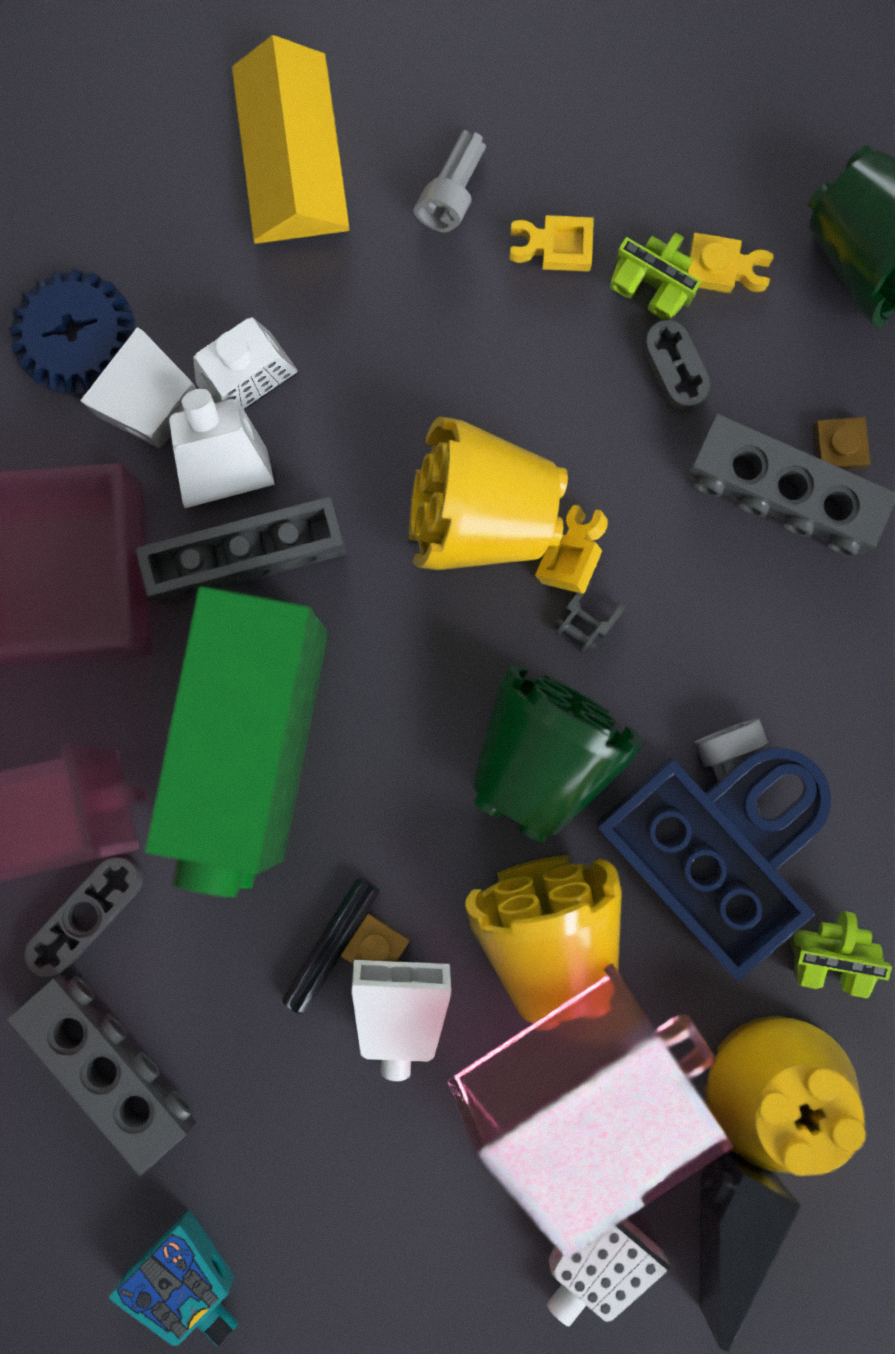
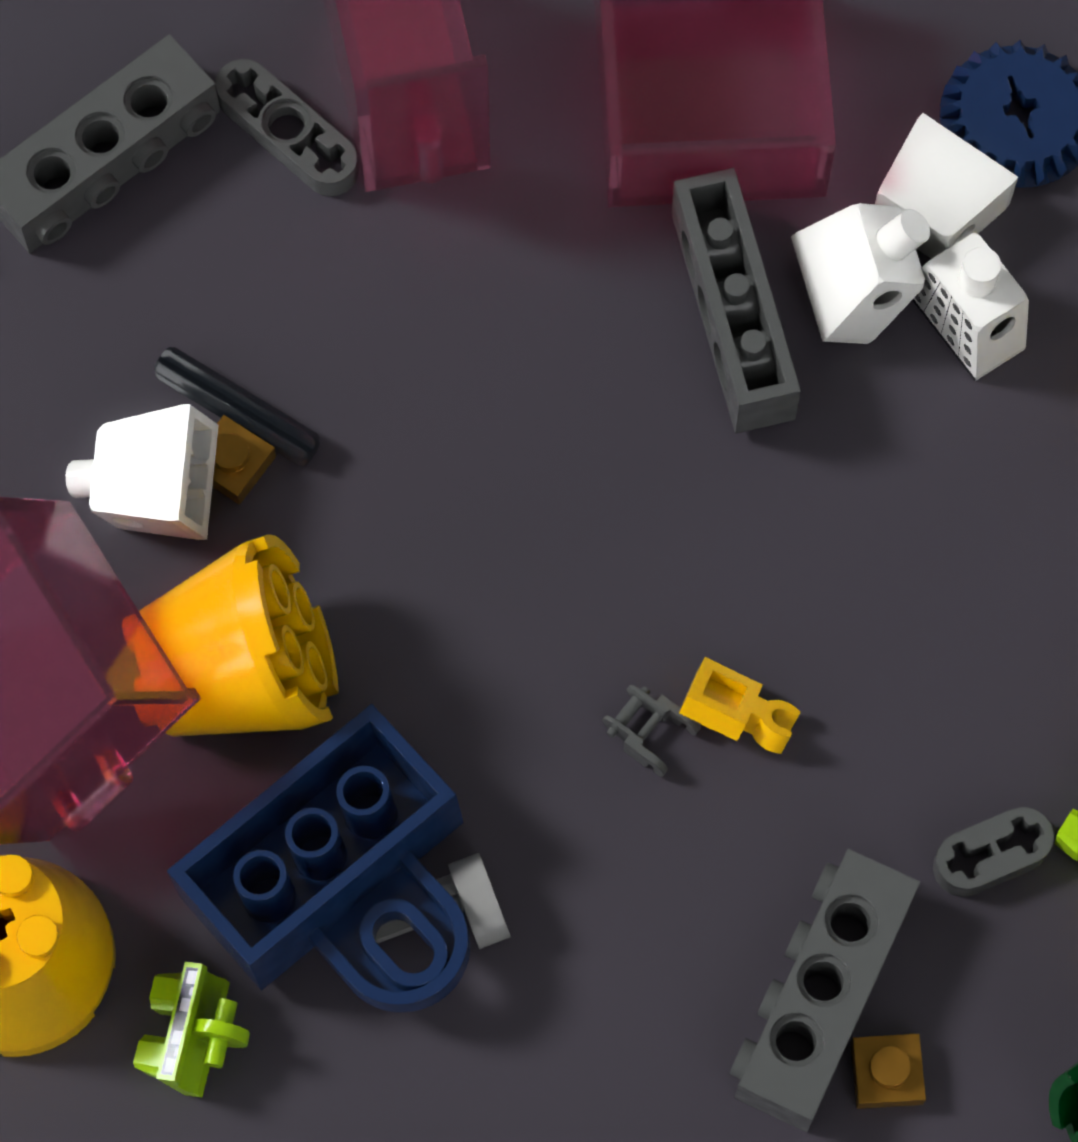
camera: 90 degrees right, 15 degrees down
(237, 740) = (490, 272): green brick -> none
(482, 500) = (797, 578): yellow cone -> none
(547, 753) = (474, 652): dark green cone -> none

